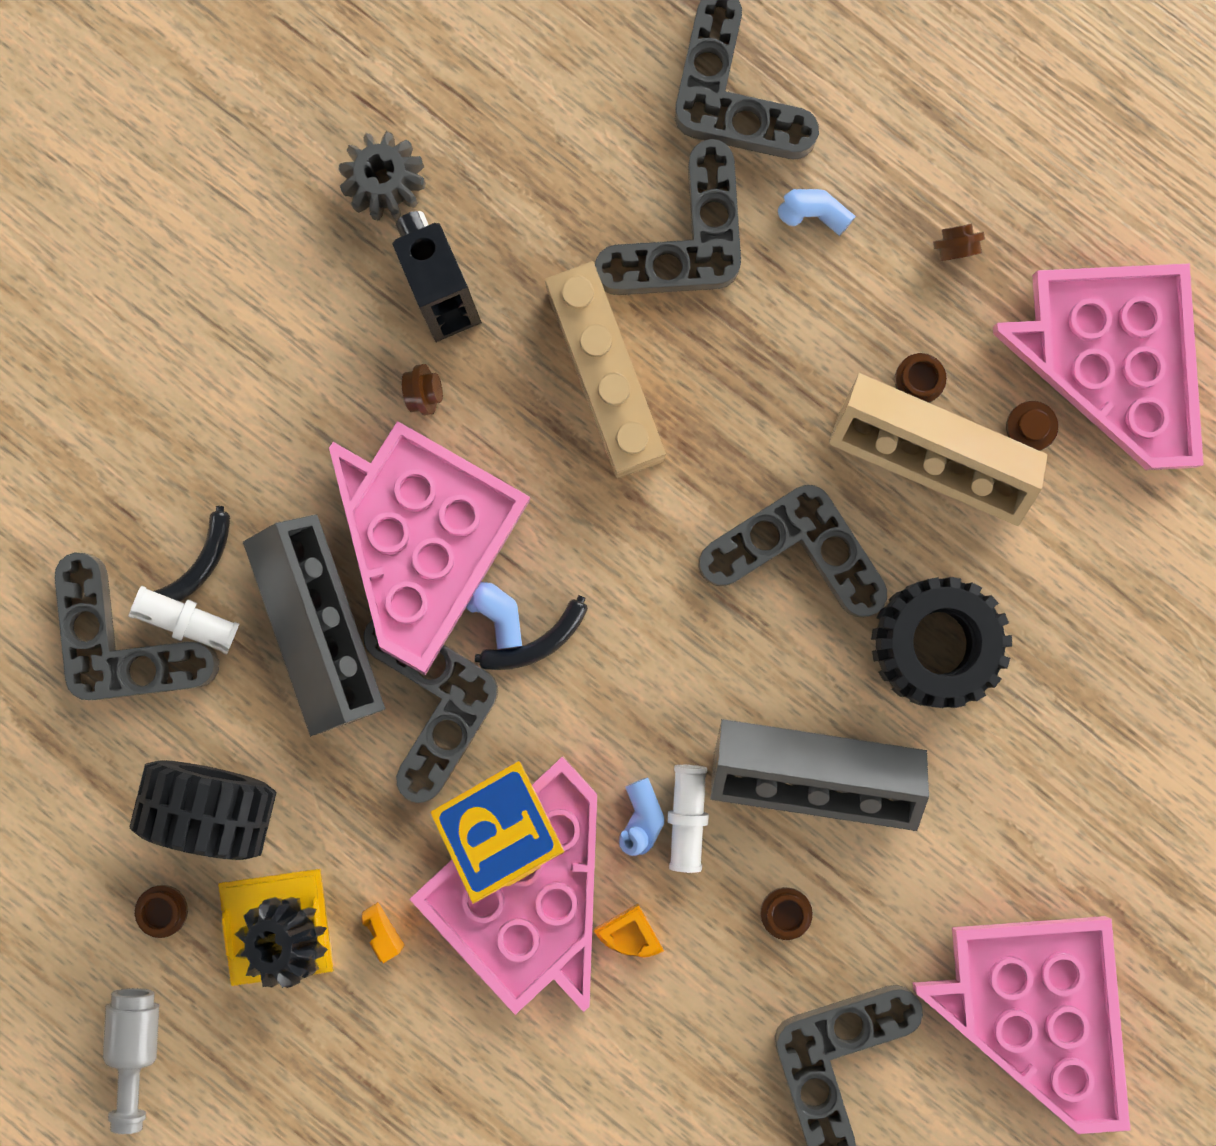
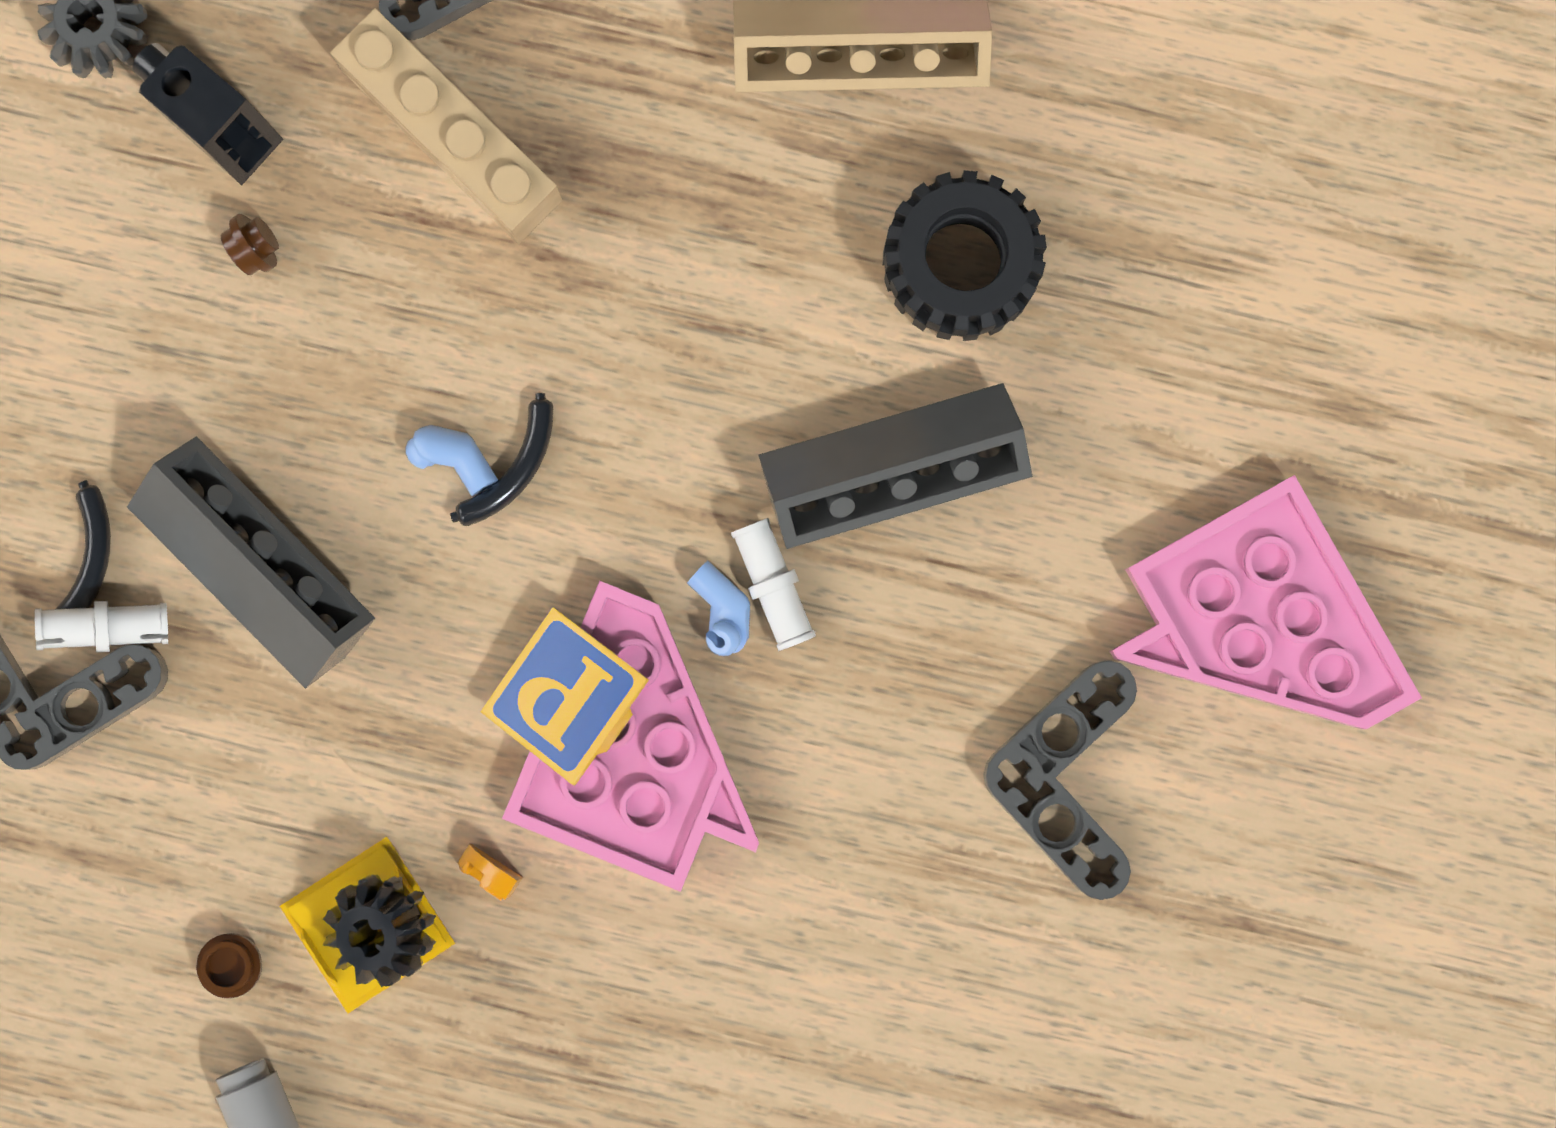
camera: 25 degrees left, 0 degrees up
(202, 810) = (221, 821): black tyre -> none
(422, 537) = (327, 407): bright pink wing -> none
(451, 708) = (449, 587): dark grey beam -> none
(630, 934) = (769, 745): light orange tile -> none
(786, 913) = (933, 639): reddish brown plate -> none
(795, 530) = (742, 212): dark grey beam -> none

